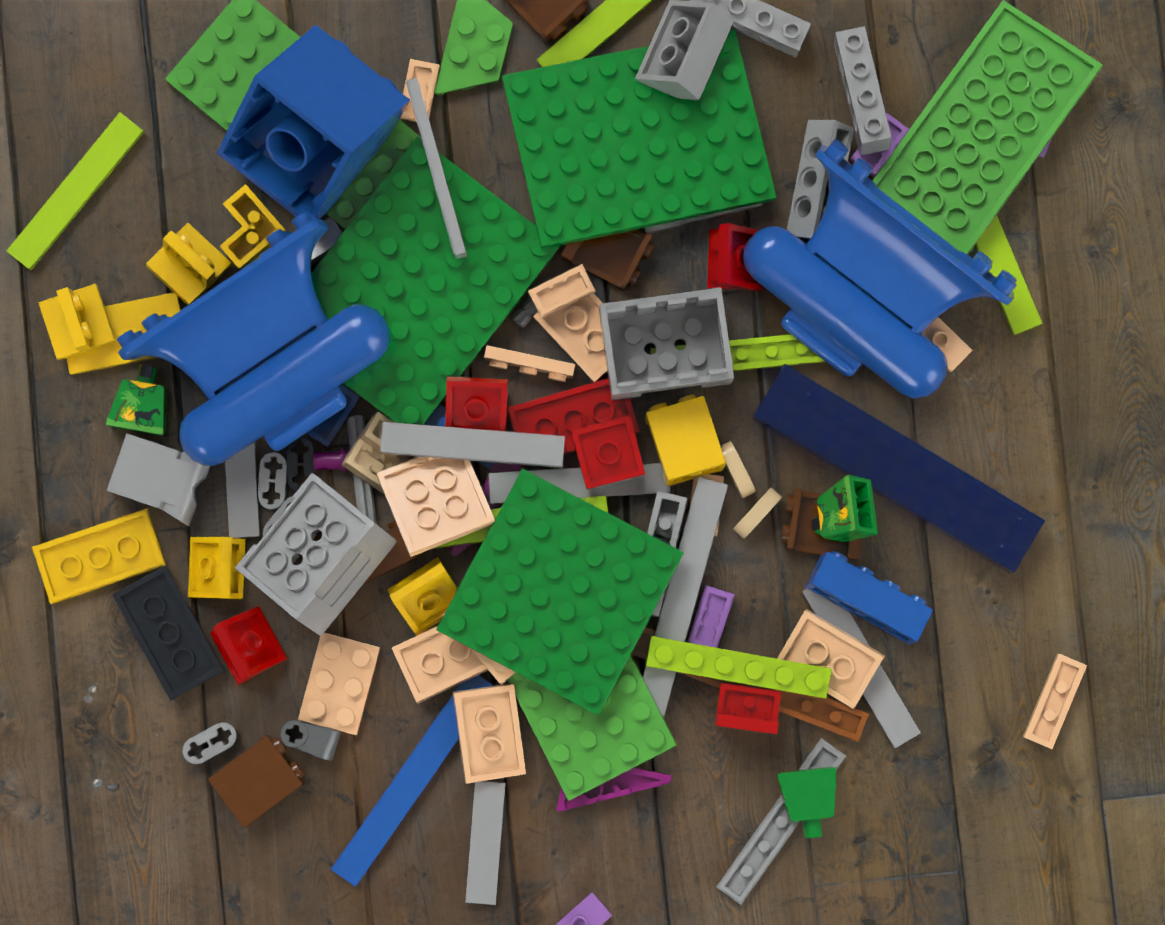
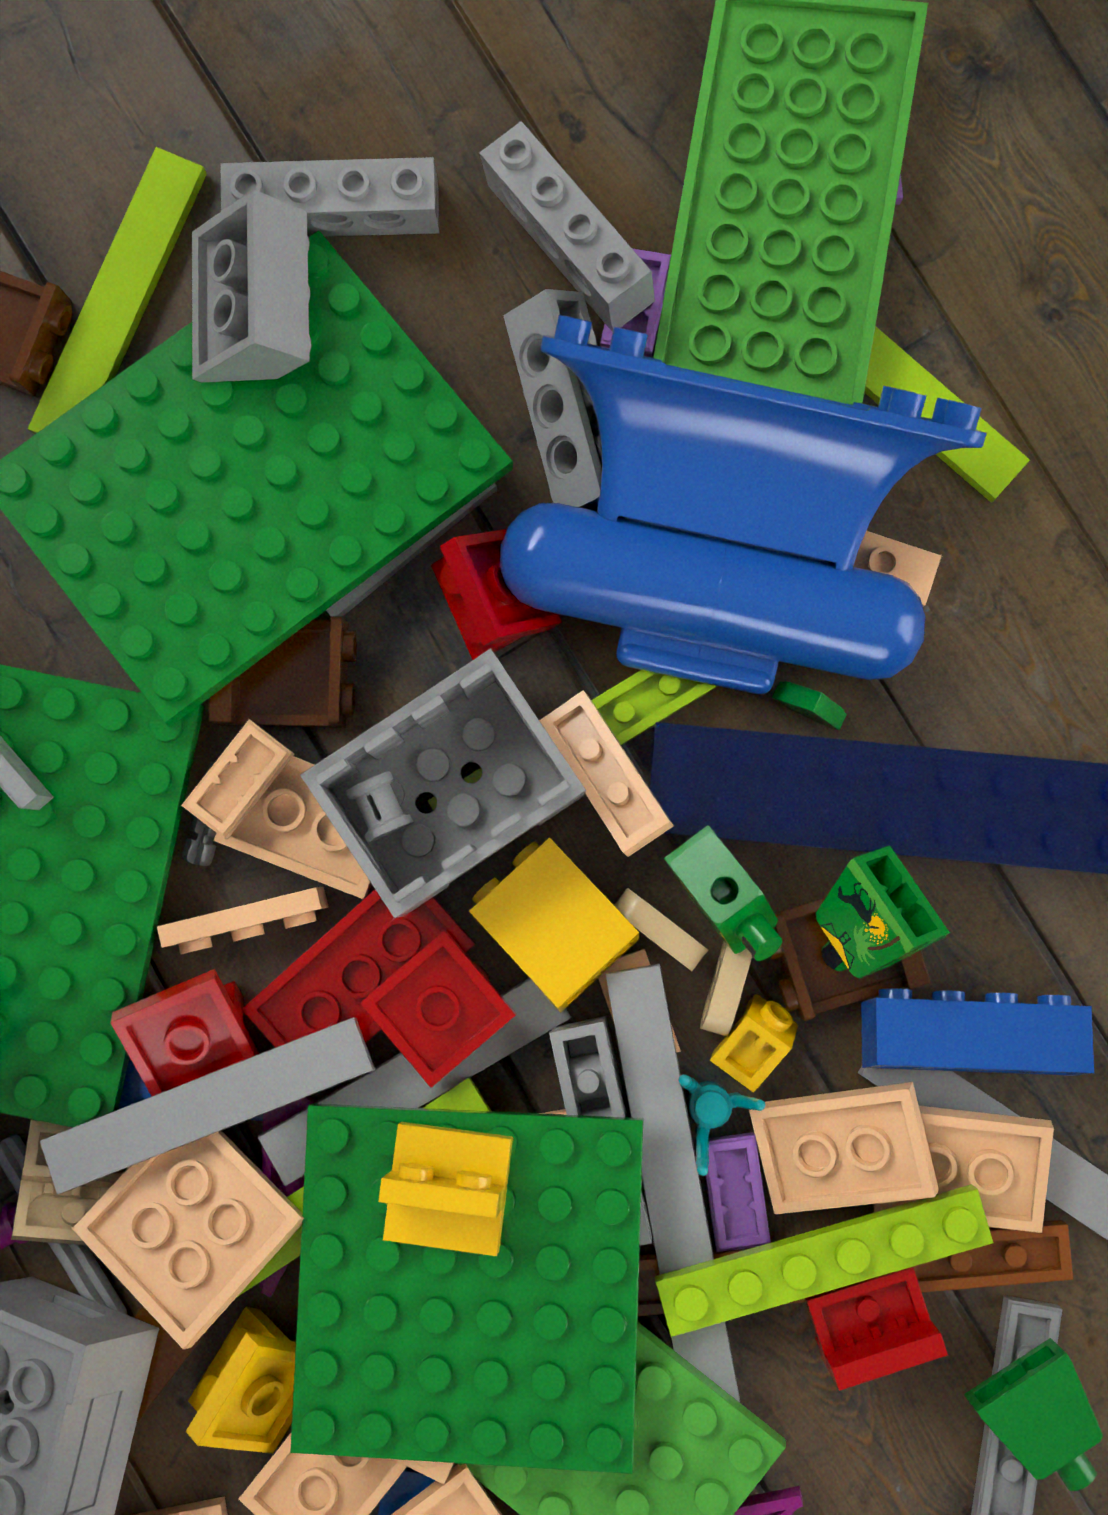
camera: 20 degrees left, 0 degrees up
(574, 537) = (447, 1188): none -> yellow bracket
(628, 338) = (379, 806): none -> light grey bush
(719, 569) = (711, 1108): none -> teal plant
(748, 377) = (606, 774): none -> light nougat plate
(757, 549) = (756, 1042): none -> yellow bracket
(775, 620) = (844, 1149): none -> light nougat plate
(780, 472) = (725, 894): none -> torso
(868, 393) = (810, 704): none -> green tile

